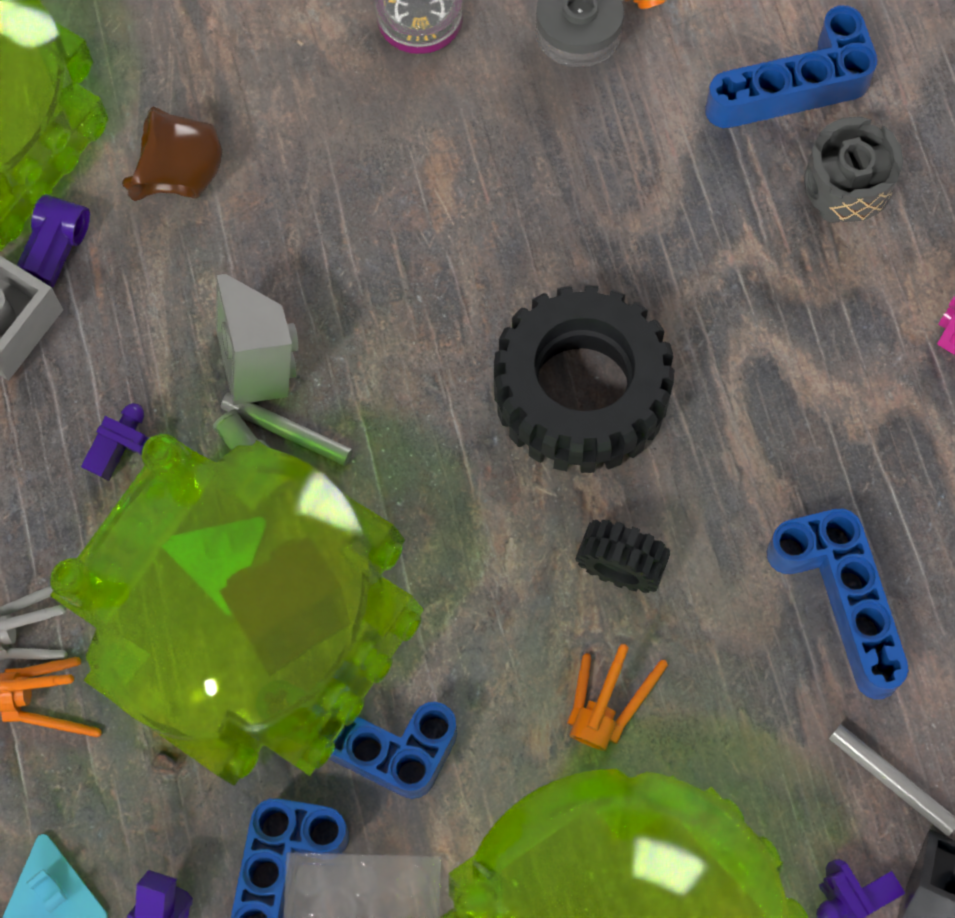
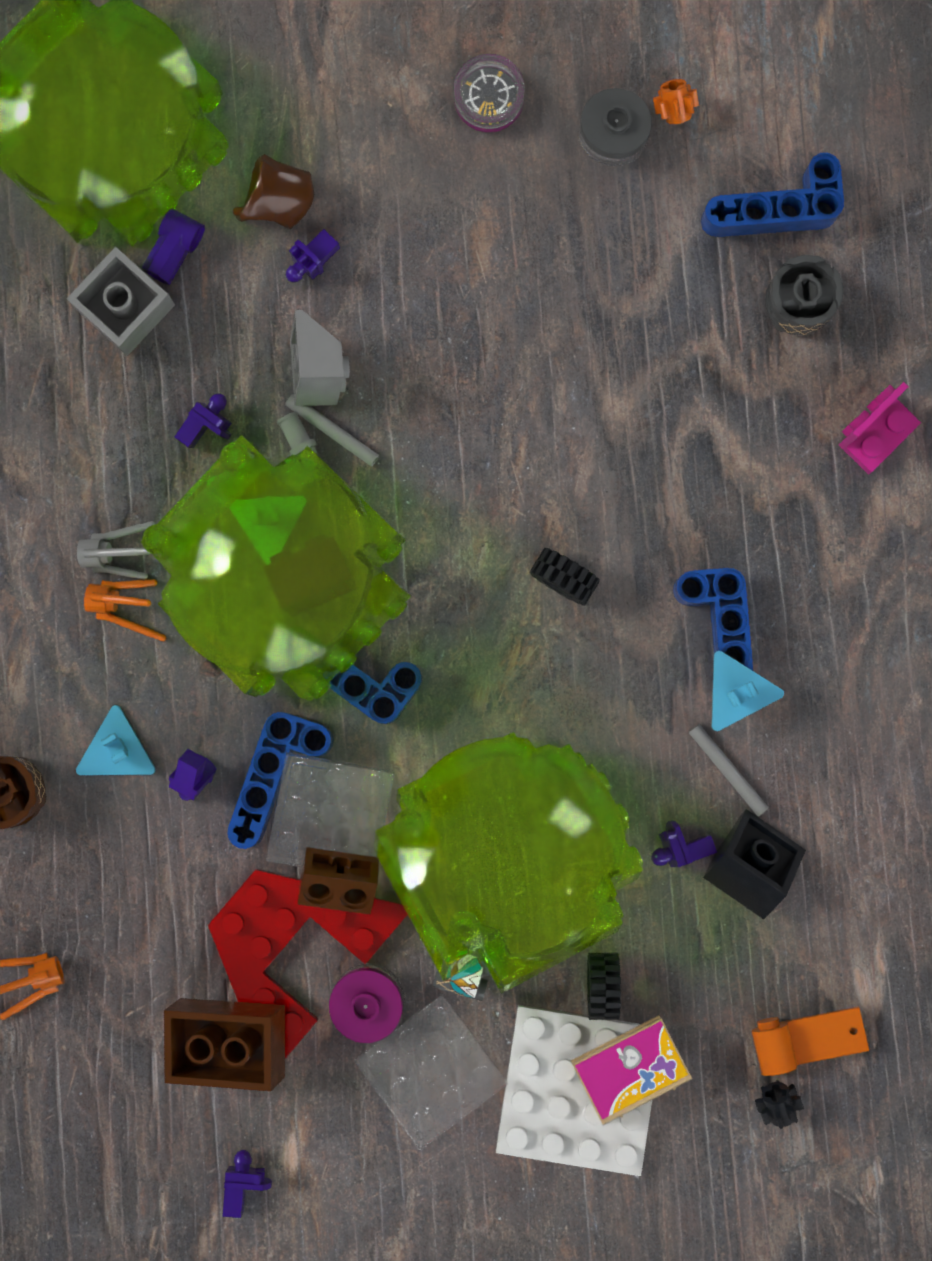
camera: 10 degrees right, 15 degrees up
(228, 225) = (312, 257): none -> dark purple piece
(595, 723) = (522, 694): orange plant -> none
(596, 324) = (571, 386): black tyre -> none
(884, 665) = (738, 691): none -> medium azure piece

